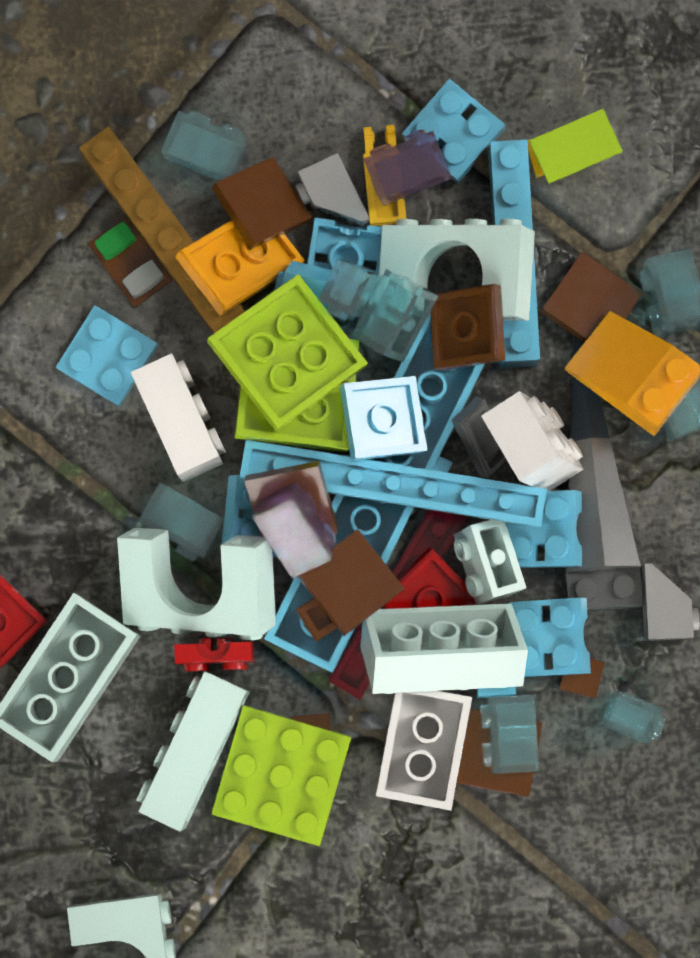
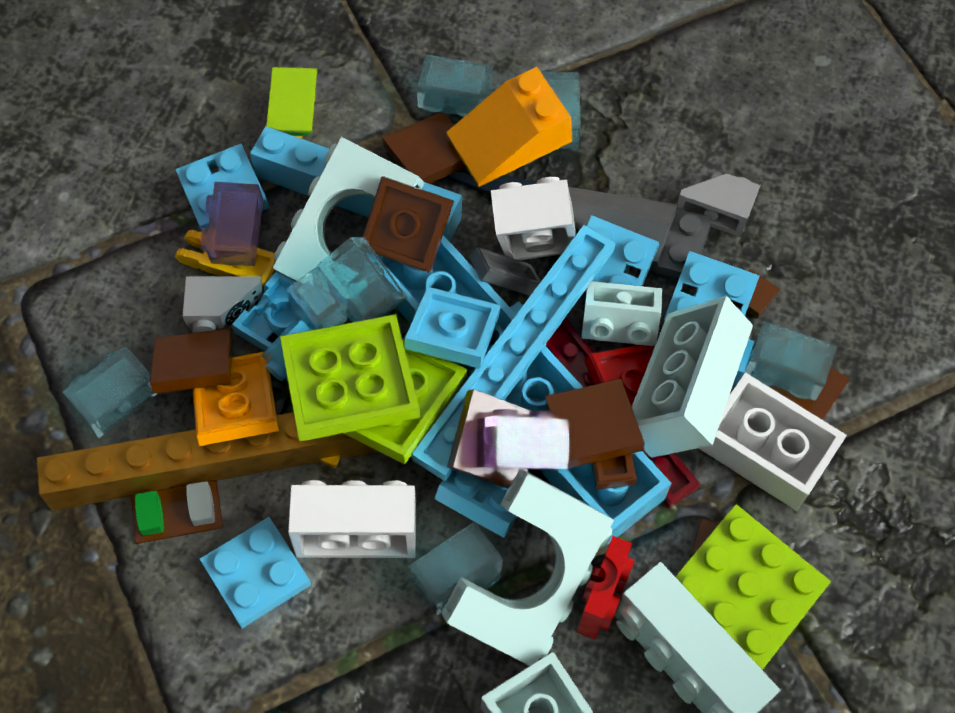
camera: 70 degrees left, 20 degrees down
(632, 718) = (813, 259): clear light blue brick -> none

